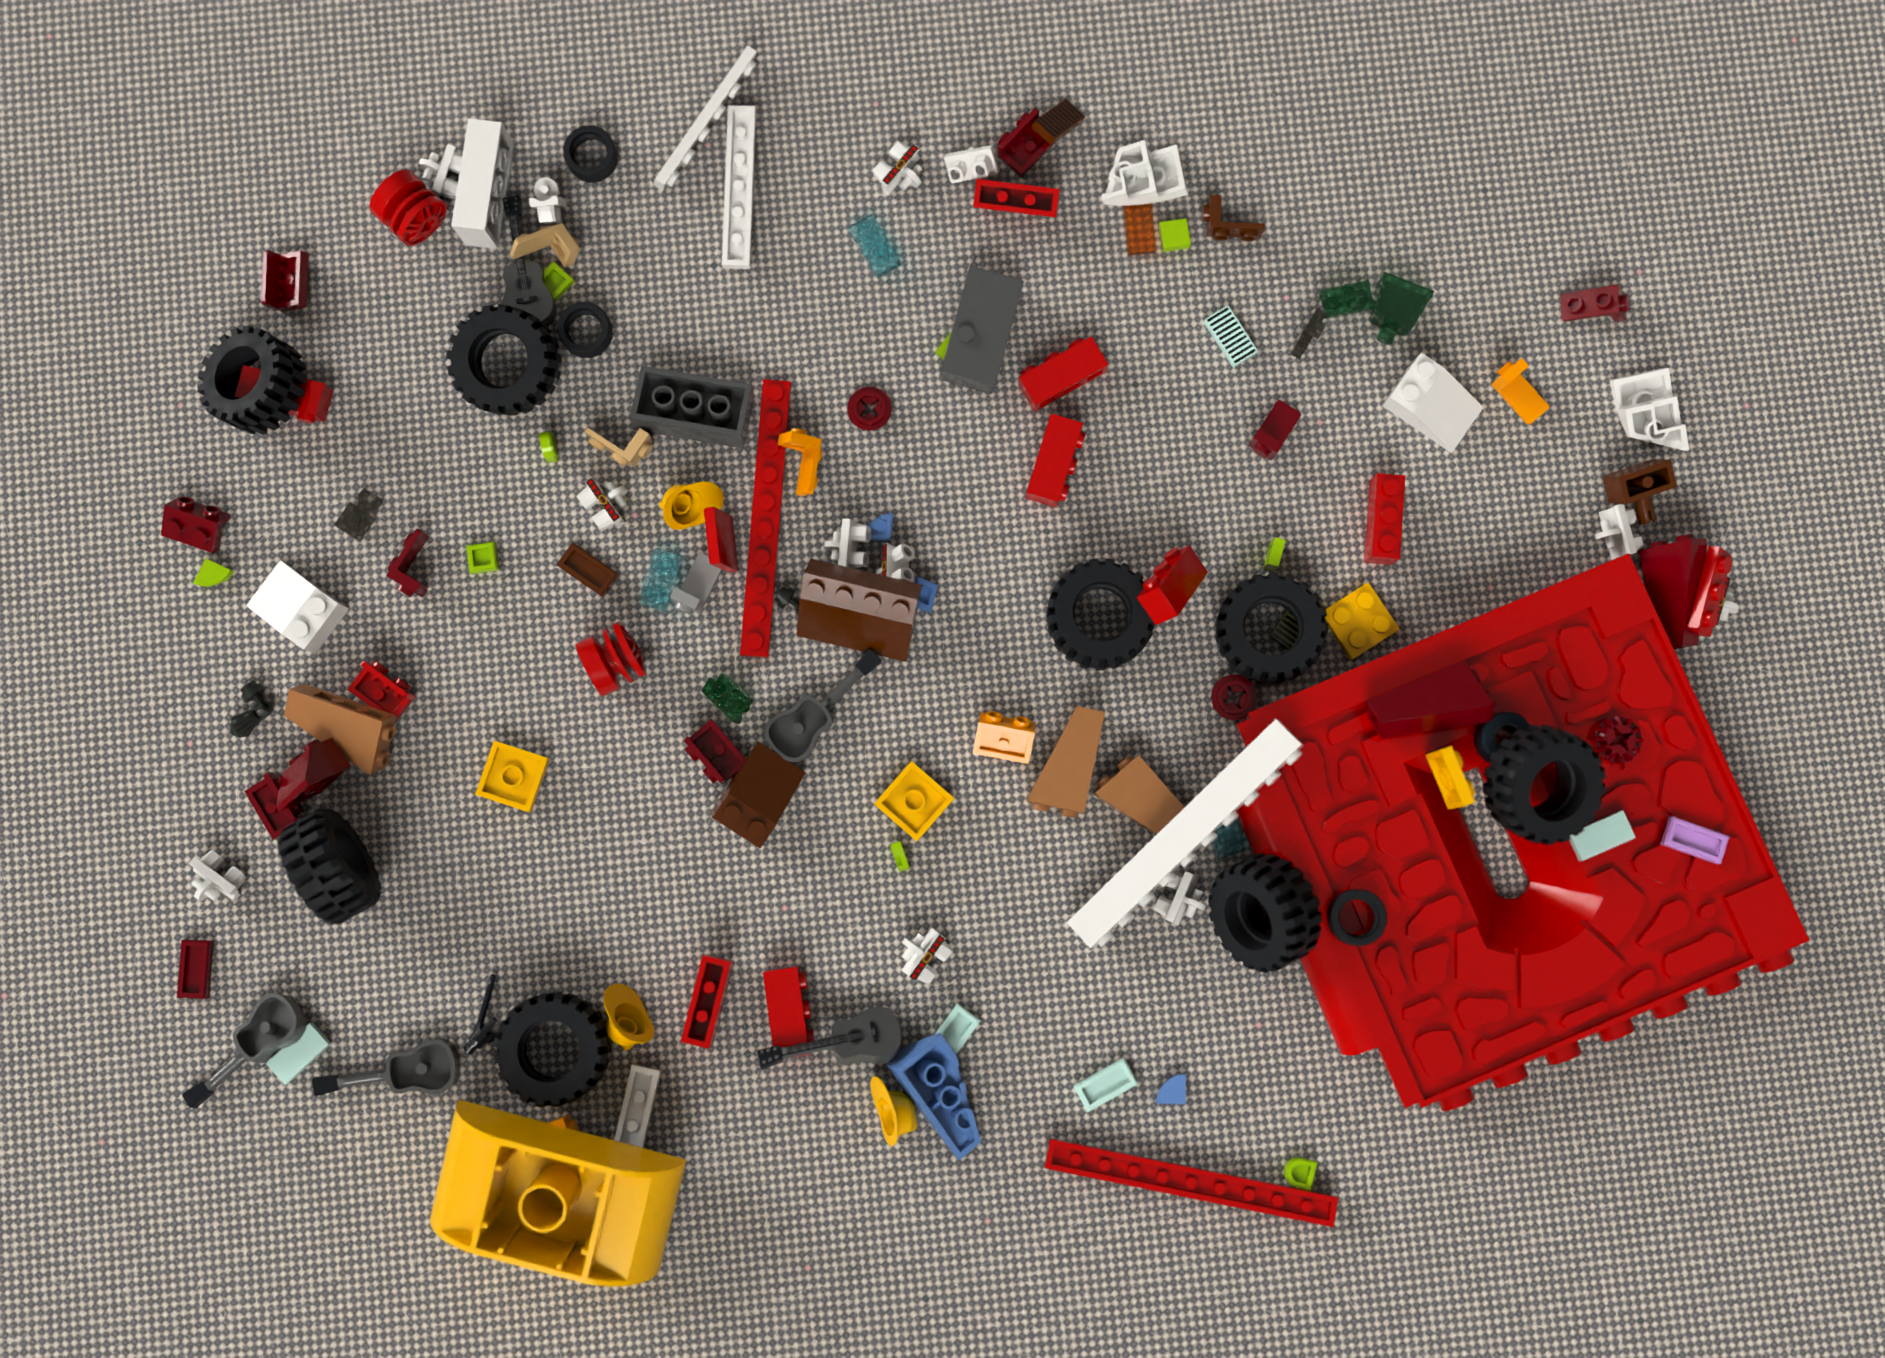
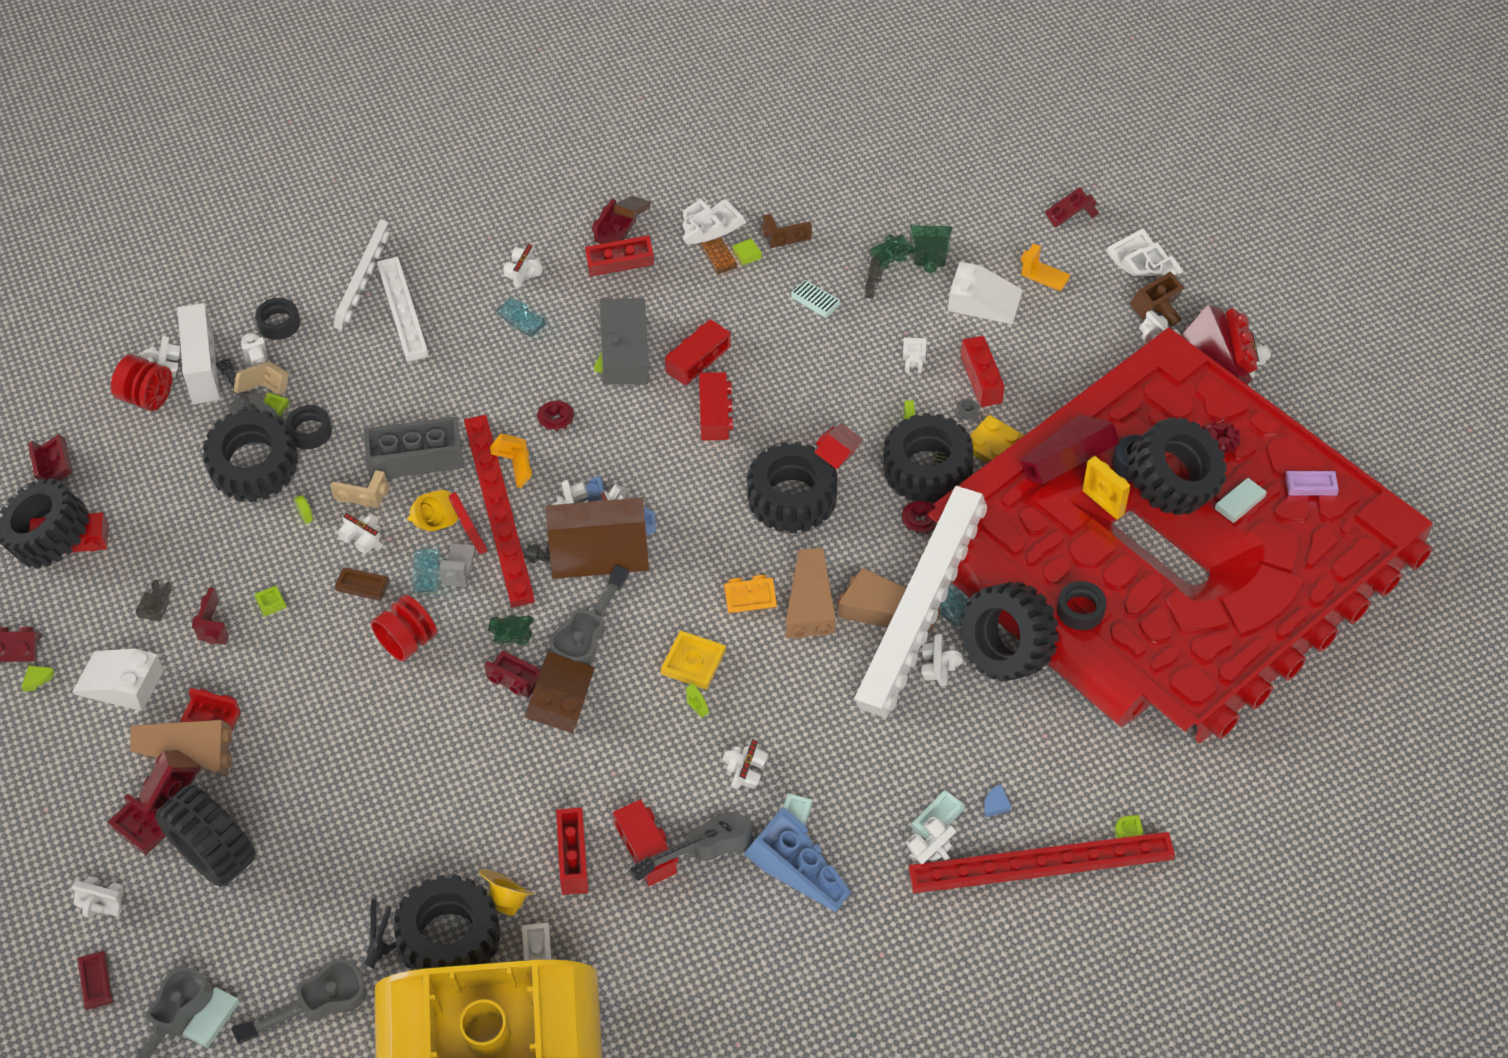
camera: 20 degrees left, 30 degrees down
(244, 723) = (94, 774): pearl dark grey piece -> none
(512, 776) = (344, 743): yellow plate -> none
(895, 1111) = (762, 885): yellow piece -> none
(971, 164) = (575, 246): white hips -> none
(1083, 1125) = (935, 845): none -> white hips
(1274, 430) = (873, 343): dark red bracket -> none
(1316, 460) = (914, 353): none -> white plate
(1353, 562) = (968, 410): none -> dark grey plate

